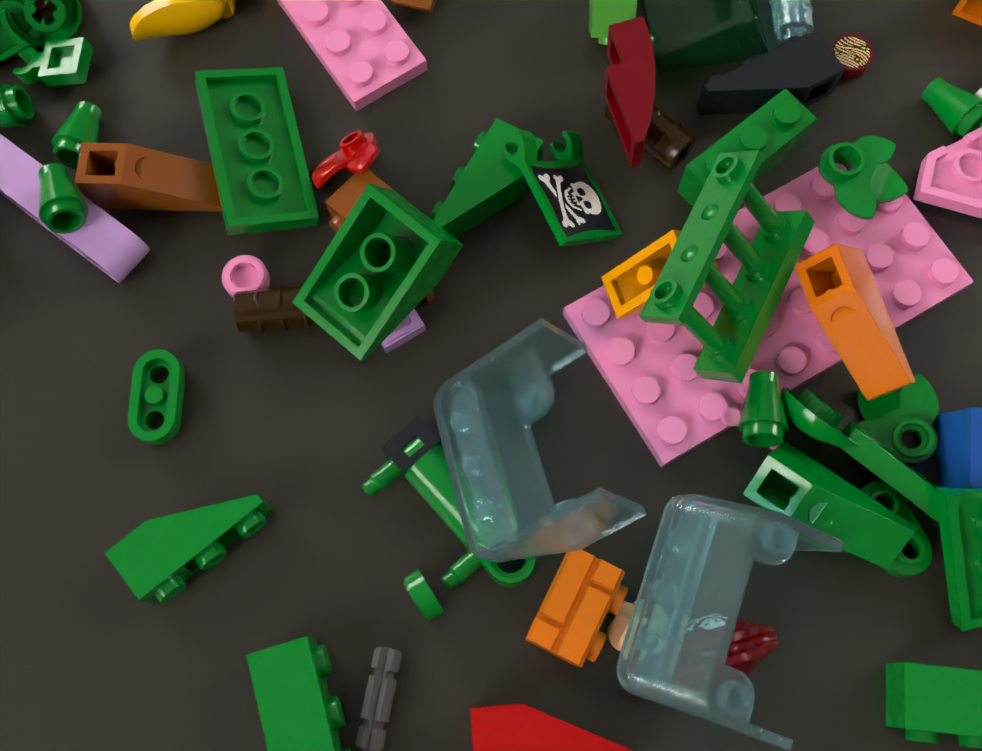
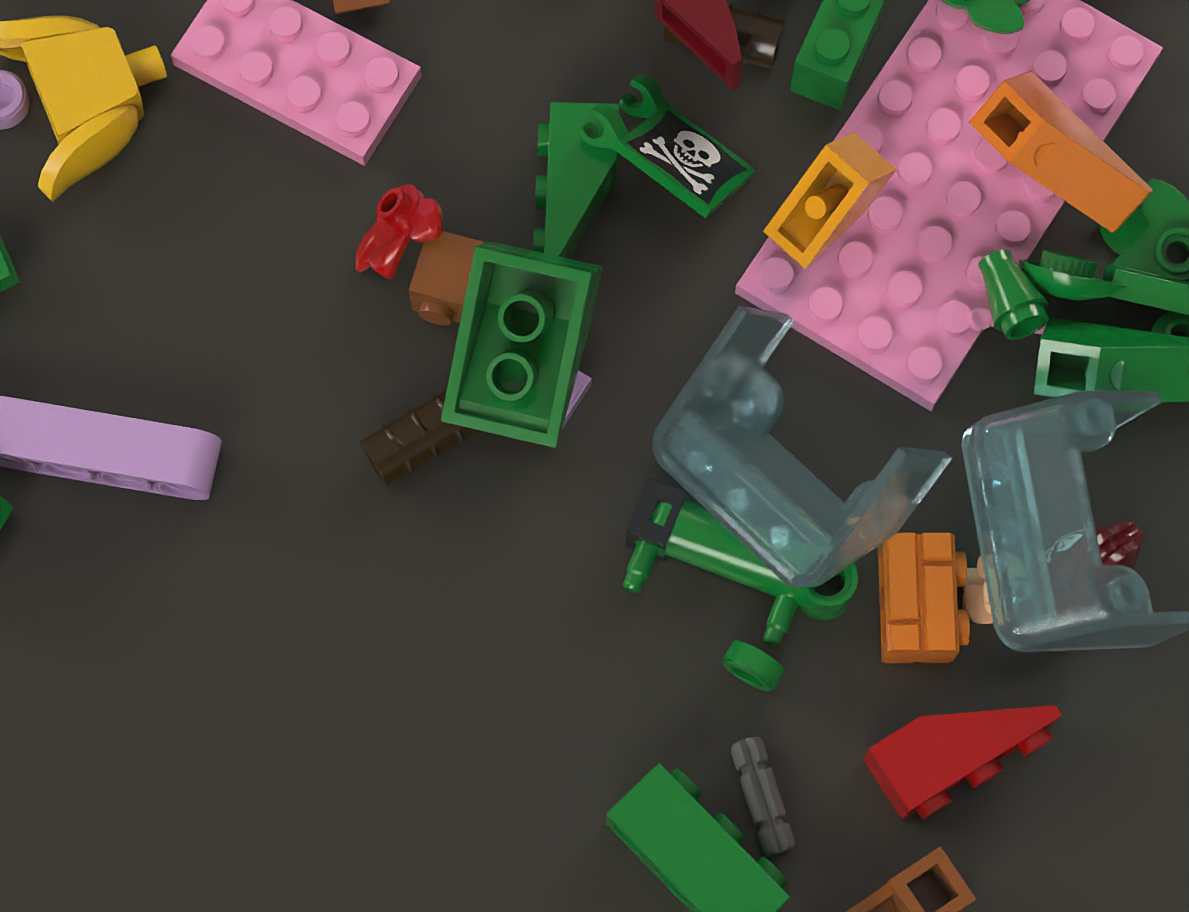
camera: 30 degrees left, 0 degrees up
(59, 200) = (105, 433): green cone -> none
(78, 128) = (53, 352): green cone -> none
(144, 179) = (183, 359): dark orange slope -> none
(154, 399) = (334, 605): green plate -> none
(174, 547) = (454, 748): green slope -> none
(245, 274) = (350, 420): bright pink tile -> none
(255, 150) = (283, 266): green plate -> none
(759, 283) = (938, 158): green fence -> none

